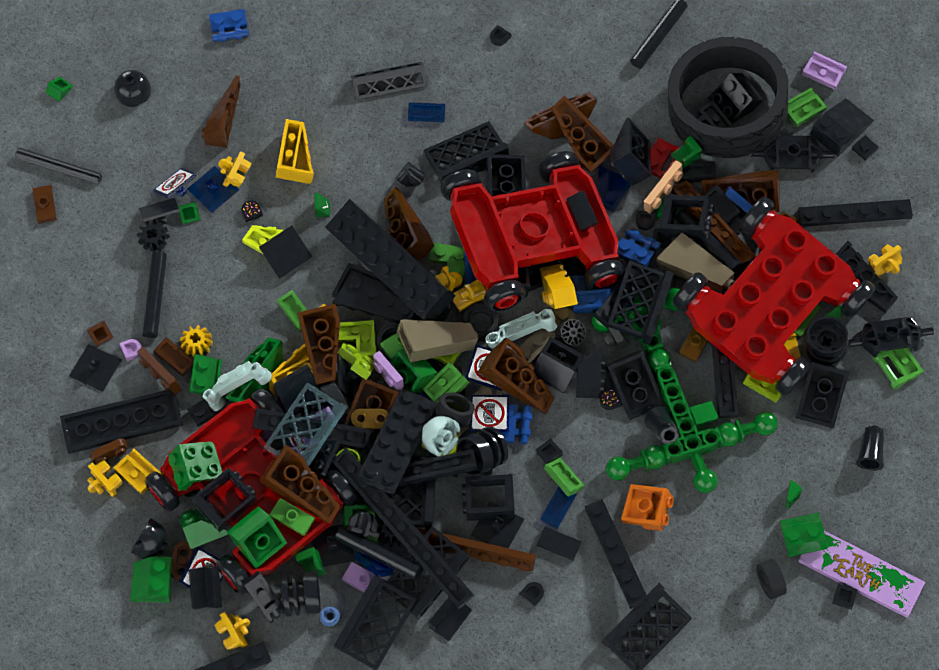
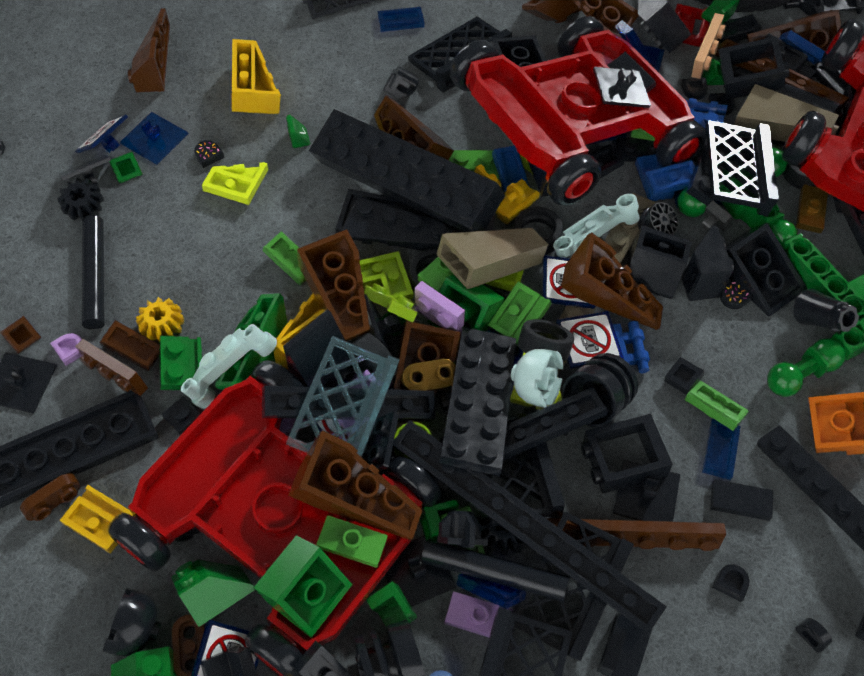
camera: 15 degrees left, 5 degrees down
(109, 484) = (38, 531): yellow hips -> none
(132, 88) = (33, 43): black cylinder -> none
(194, 463) = (182, 488): green bracket -> none
(236, 479) = (251, 498): black window -> none
(238, 164) = (168, 105): yellow hips -> none
(285, 251) = (262, 188): black slope -> none
(558, 289) = (630, 168): yellow wedge -> none
(567, 223) = (621, 87): none -> piece
(571, 635) = (814, 634): none -> black tile
(598, 178) = (628, 34): none -> clear blue tile

